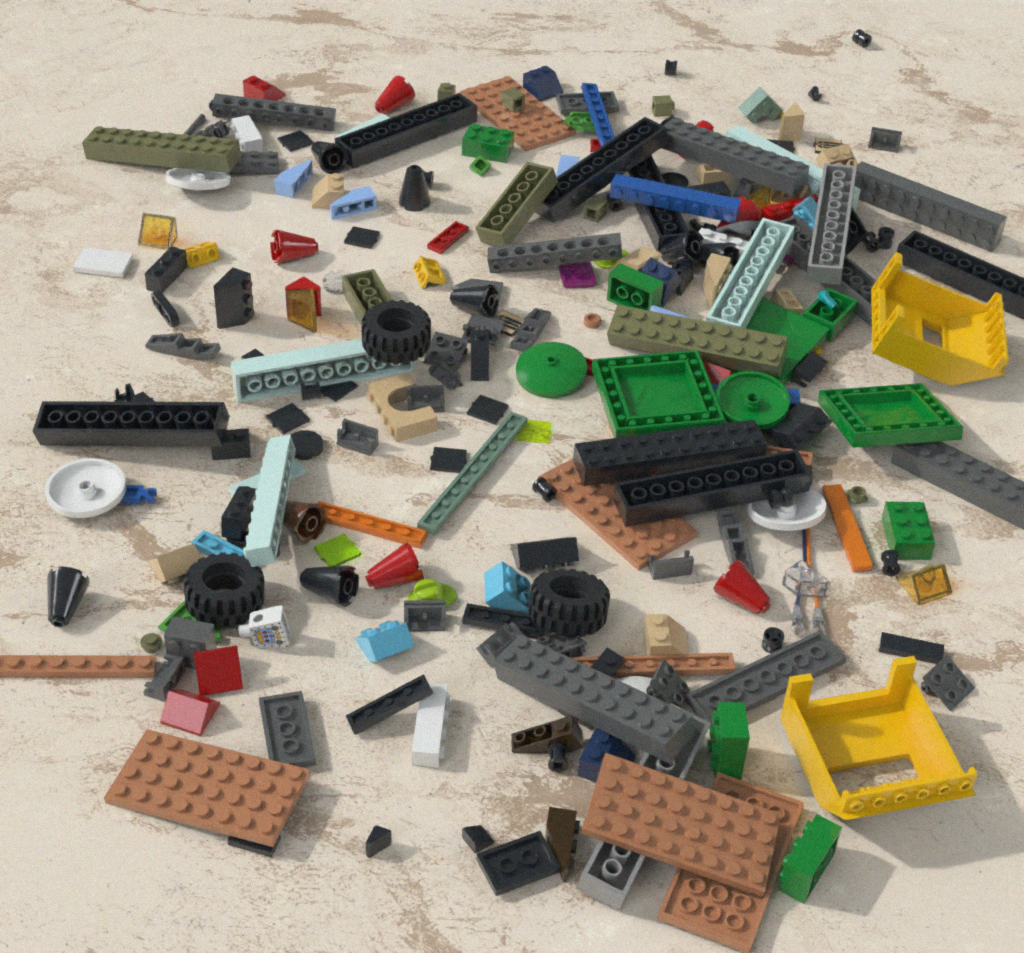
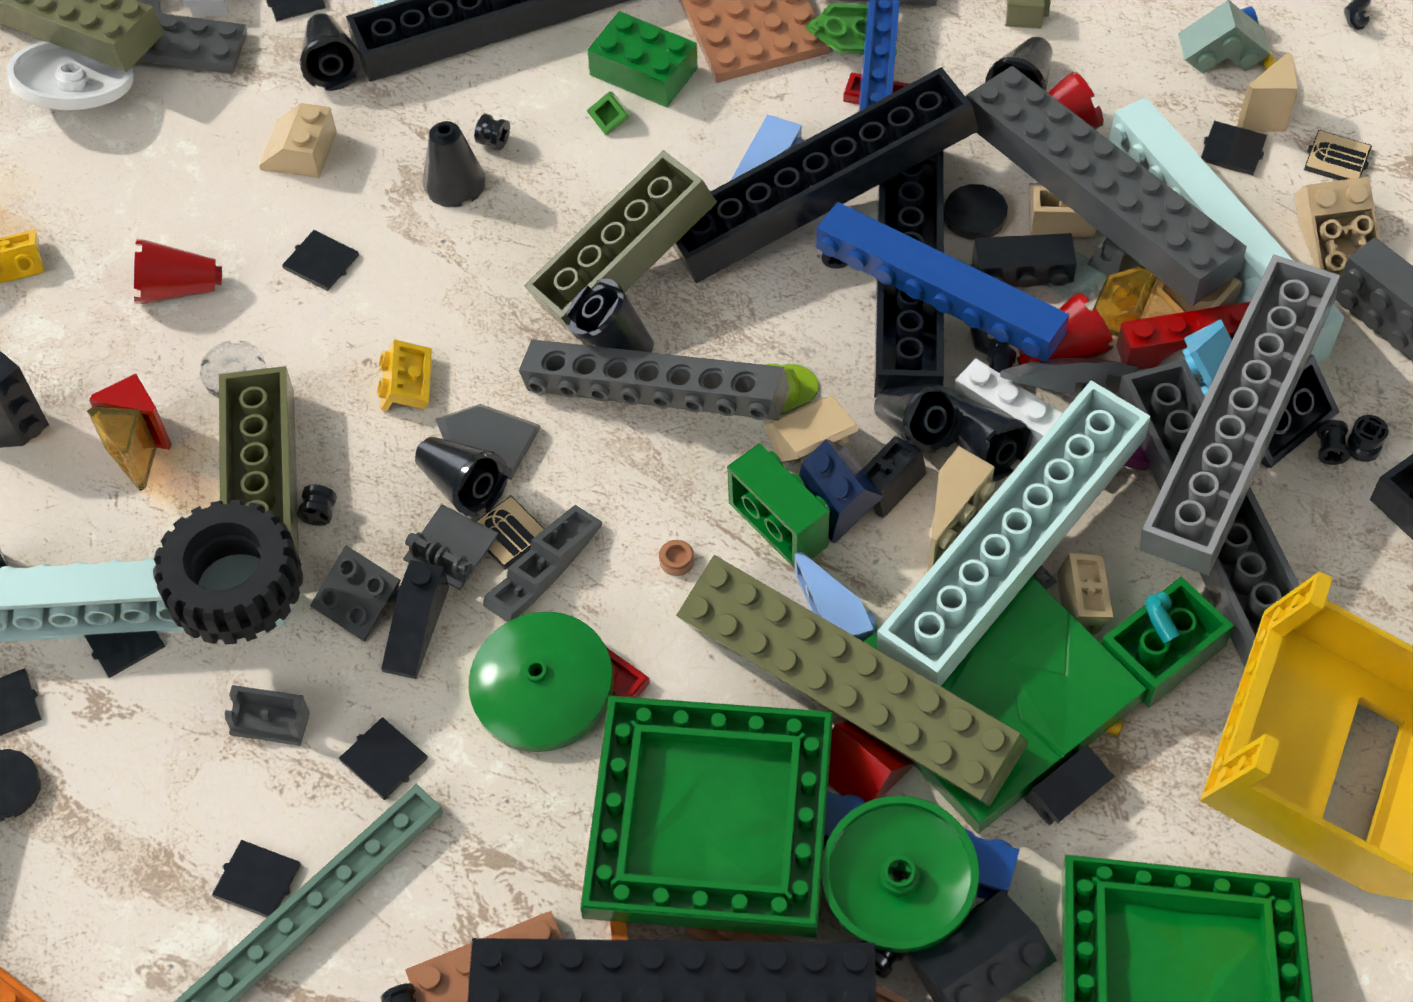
camera: 20 degrees right, 15 degrees up
(293, 179) = (245, 98): light blue slope -> none
(309, 391) = (63, 649): black bush -> none
(354, 202) = (333, 174): light blue slope -> none
(357, 437) = (101, 792): dark grey hinge -> none
(400, 424) = (190, 689): tan arch -> none
(448, 237) = (480, 287): red tile -> none
(450, 379) = (329, 642): dark grey hinge -> none
(523, 228) = (608, 318): none -> black cone
(535, 432) = (453, 837): clear neon green piece -> none
(577, 275) = (690, 435): magenta tile -> none
(595, 209) = (790, 261): olive brick -> none

